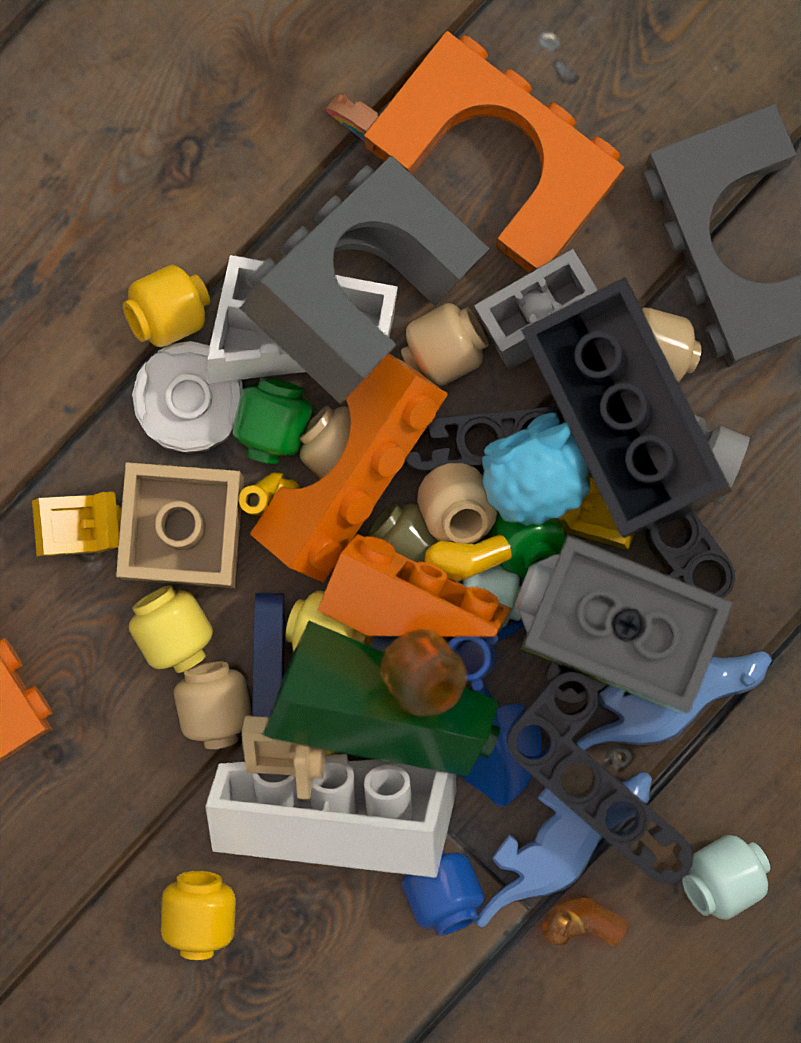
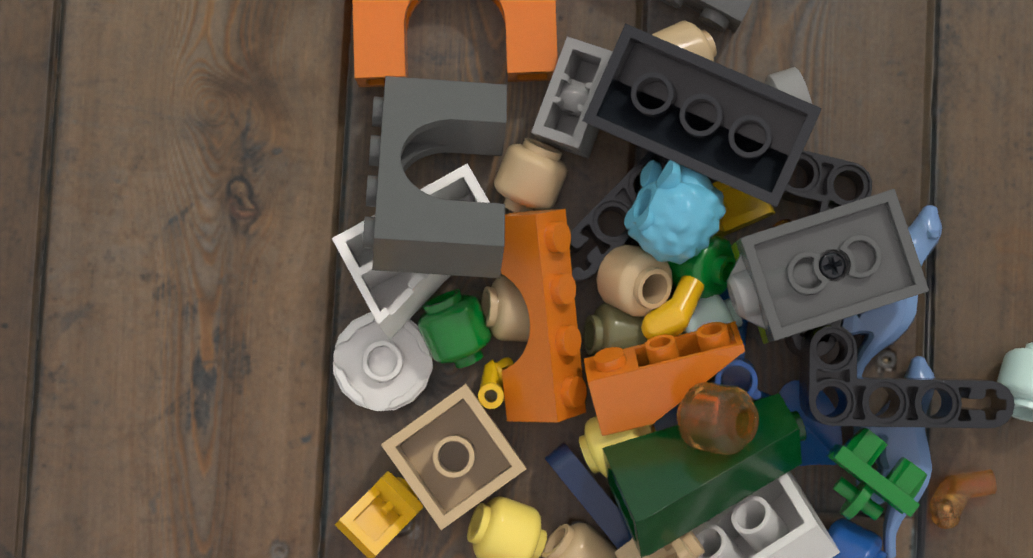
camera: 40 degrees left, 0 degrees up
(166, 306) = (315, 310): yellow head -> none
(355, 117) = (338, 71): nougat tile -> none
(529, 864) = (896, 489): none -> green hips

